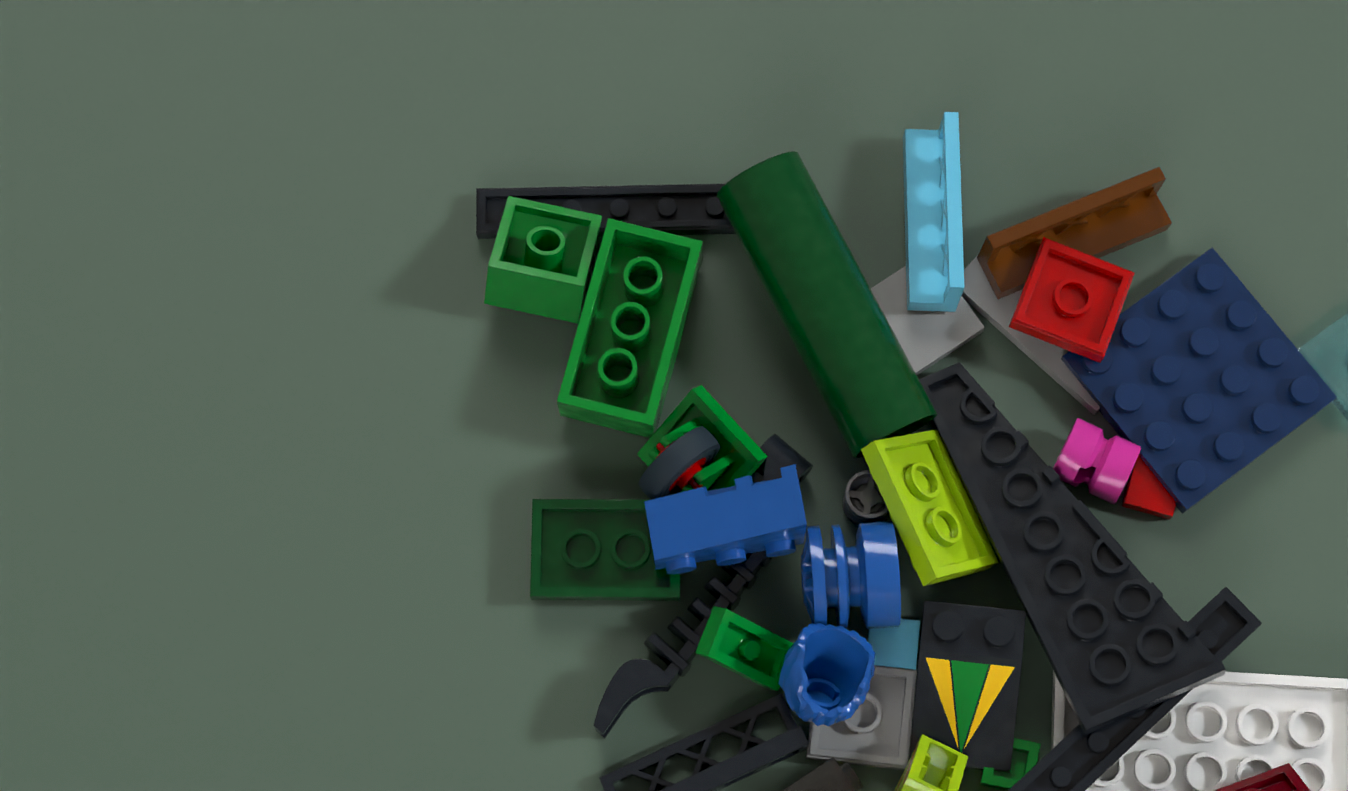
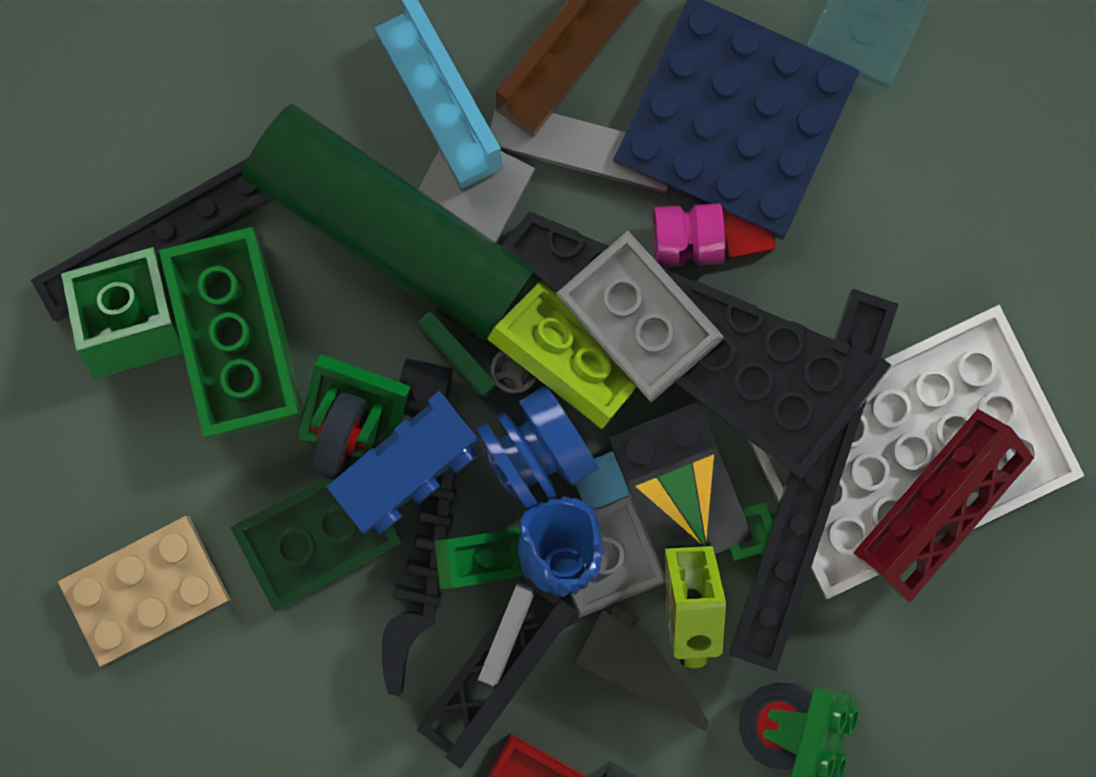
camera: 30 degrees left, 10 degrees up
(422, 516) = (144, 590): none -> tan plate
(734, 726) = (506, 634): none -> light grey tile
(824, 456) = (457, 357): none -> dark green tile
(1012, 505) = (640, 316): none -> light grey tile
(1071, 300) = (596, 106): red tile -> none

